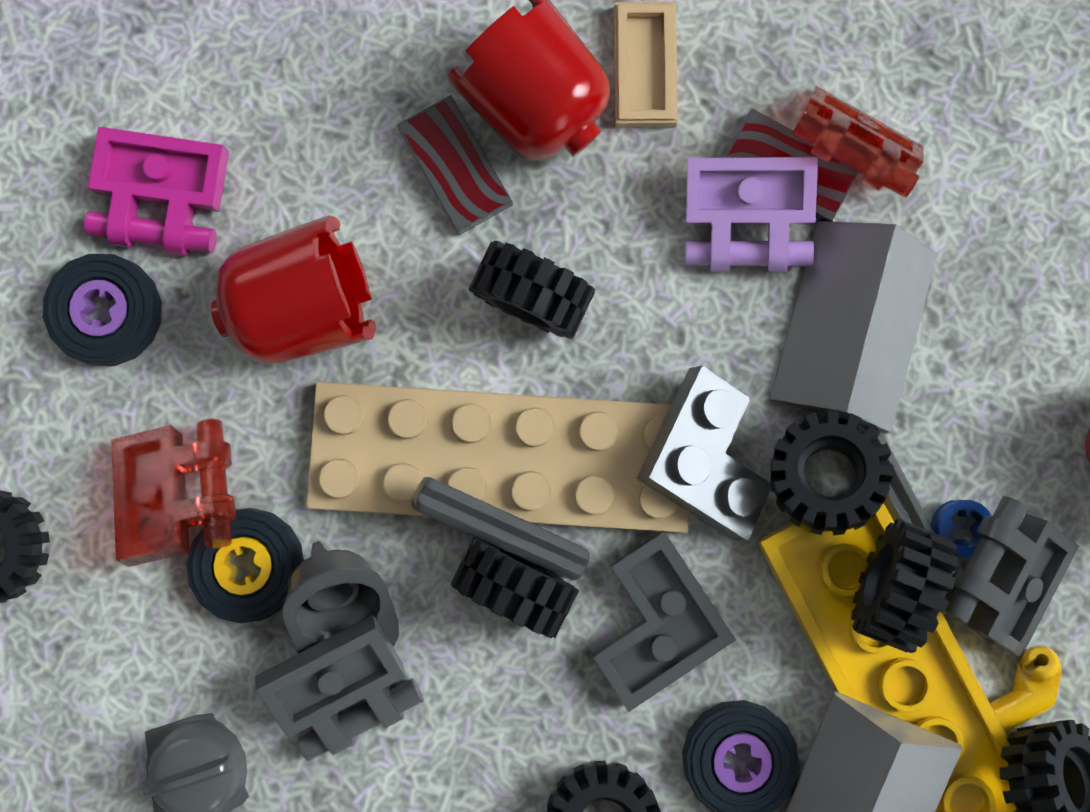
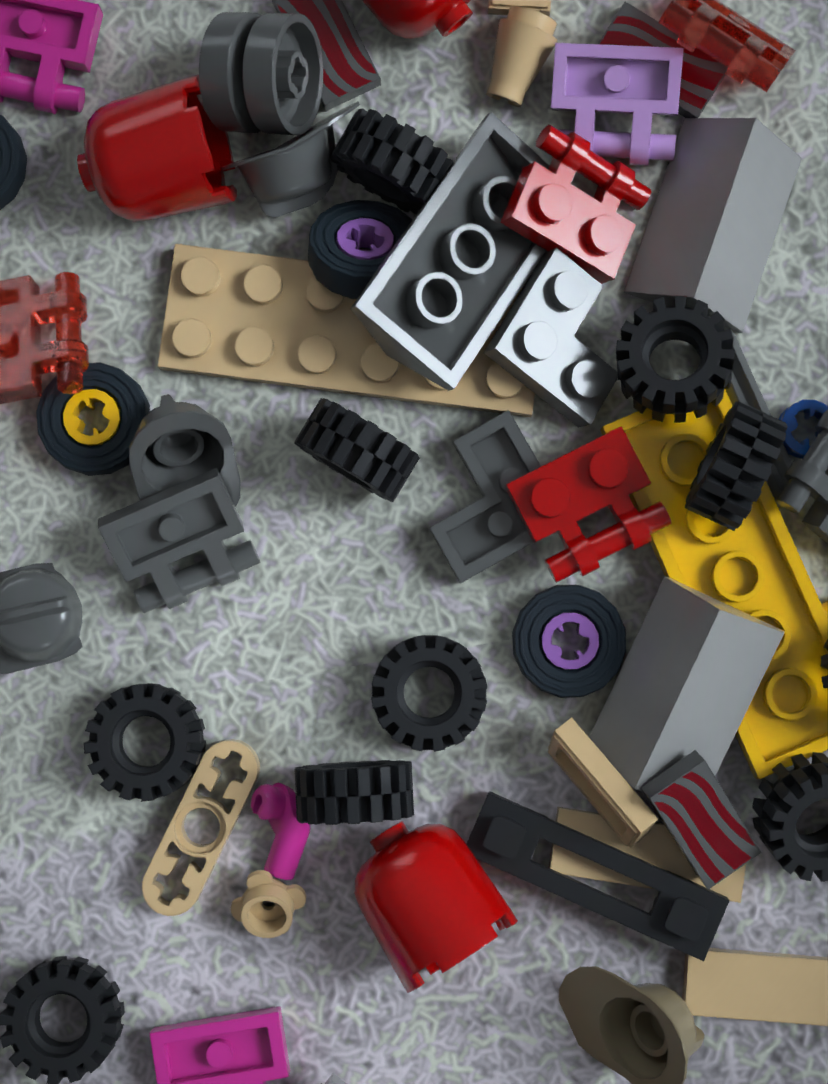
camera: 15 degrees right, 0 degrees up
(392, 208) = (261, 72): none -> dark grey wheel
(432, 300) = (296, 171): none -> dark grey piece
(500, 528) = (331, 383): dark grey axle -> none
(502, 405) = (339, 235): none -> black bush
(612, 381) = (454, 262): none -> dark grey slope
(650, 167) = (520, 52): none -> tan cone
(708, 334) = (563, 216): none -> plate
(744, 607) = (578, 486): none -> red plate

